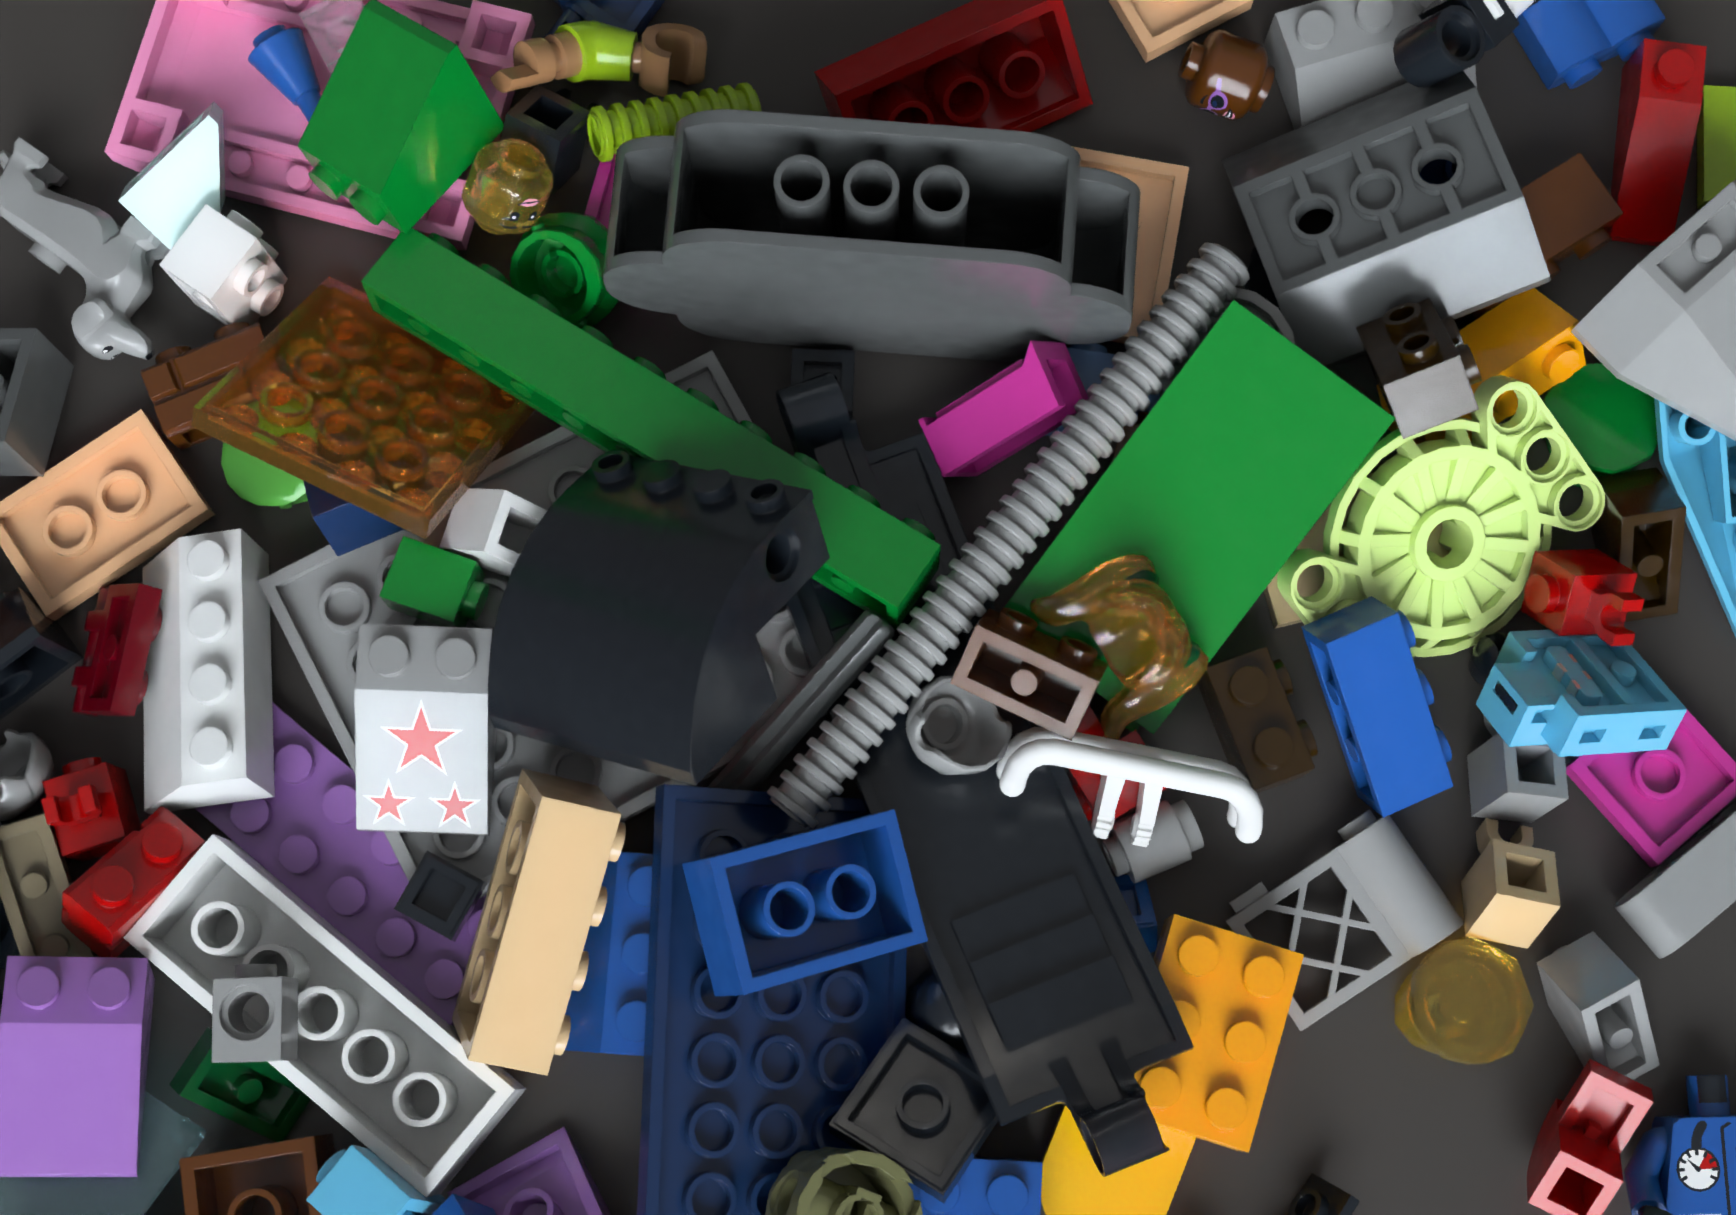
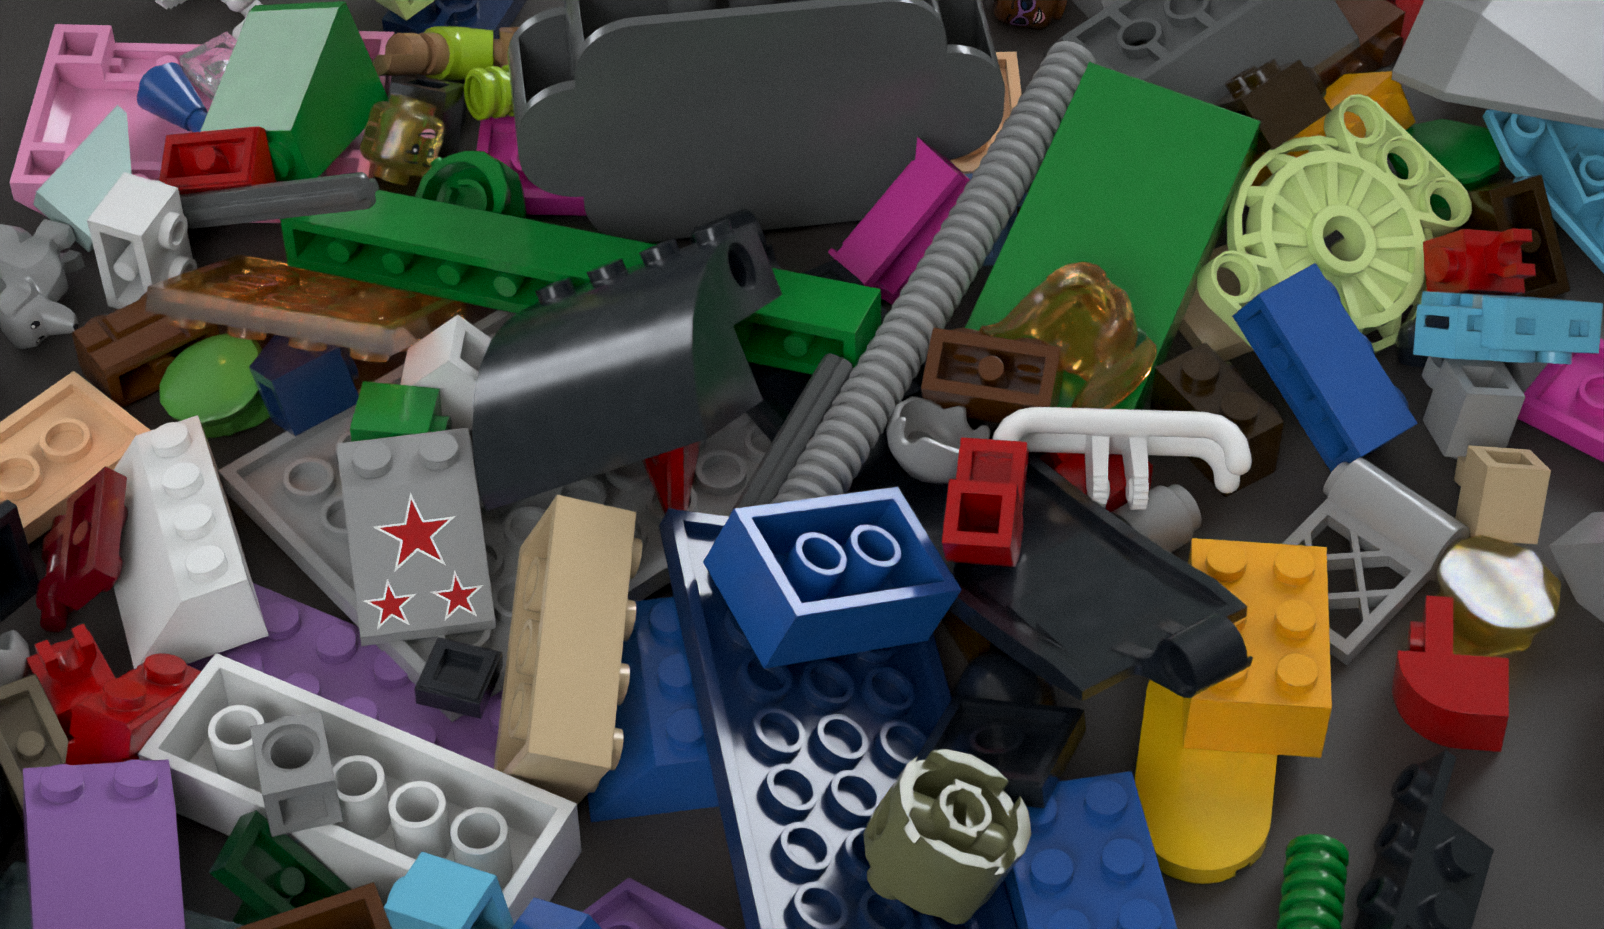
camera: 15 degrees left, 30 degrees down
(307, 197) = (216, 160): none -> red slope
(347, 266) = (279, 200): none -> dark grey axle
(974, 857) = (986, 503): none -> red brick
(1376, 1114) = (1449, 695): none -> red brick

